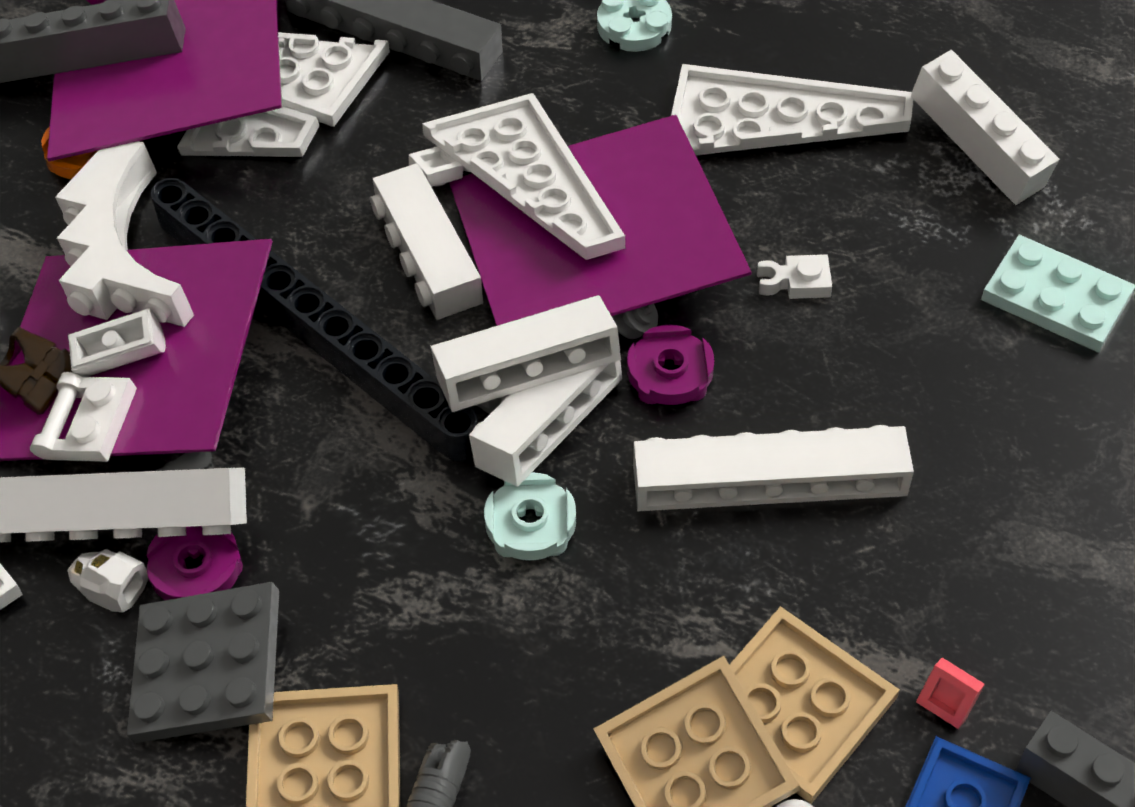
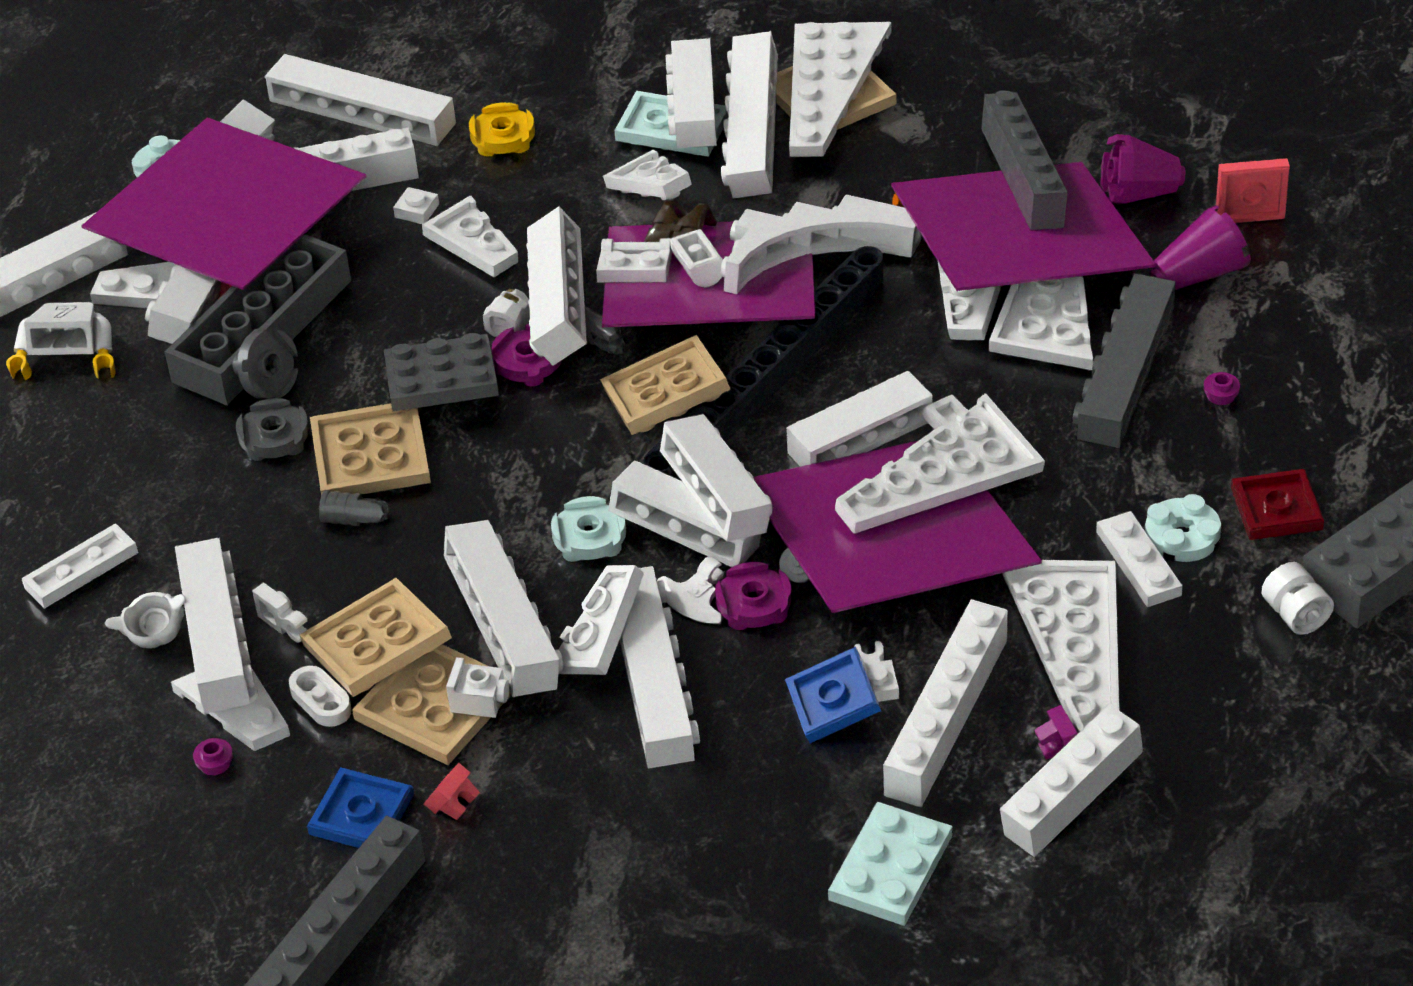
camera: 85 degrees right, 10 degrees down
(324, 405) = (665, 385): none -> tan plate
(650, 419) = (695, 595): none -> white piece
(666, 55) = (1139, 559): none -> white plate
(668, 609) = (502, 608): none -> white brick
(727, 502) = (594, 637): none -> white wing
(815, 637) = (476, 689): none -> white brick
(834, 308) = (832, 695): none -> blue tile
(860, 214) = (945, 703): none -> white brick
(907, 136) = (1055, 733): none -> magenta tile

